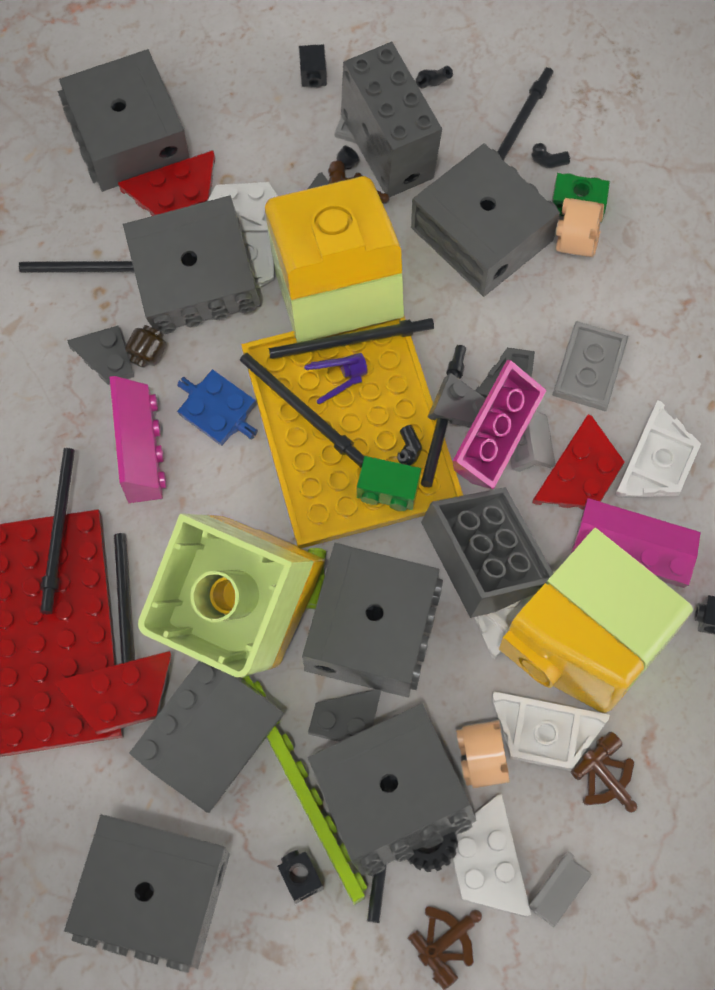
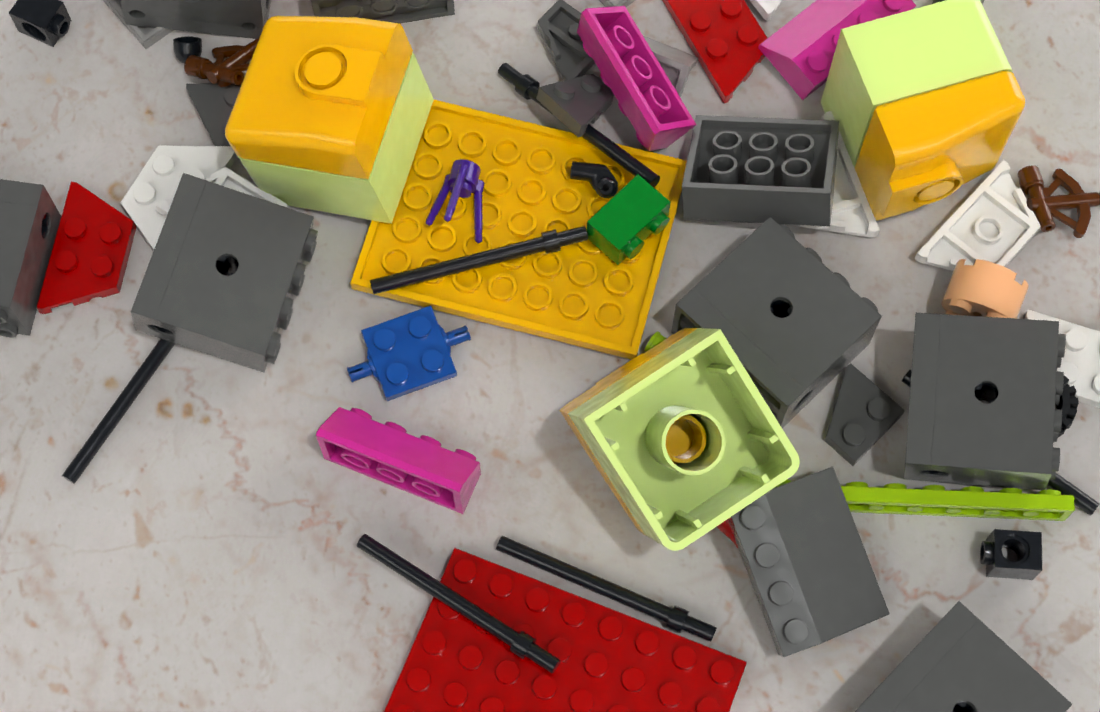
camera: 60 degrees left, 0 degrees up
(104, 353) = (254, 440): dark grey wing -> none
(118, 693) = (701, 636): red wing -> none
(145, 346) = (281, 387): dark brown head -> none
(404, 328) = (450, 106): black bar -> none

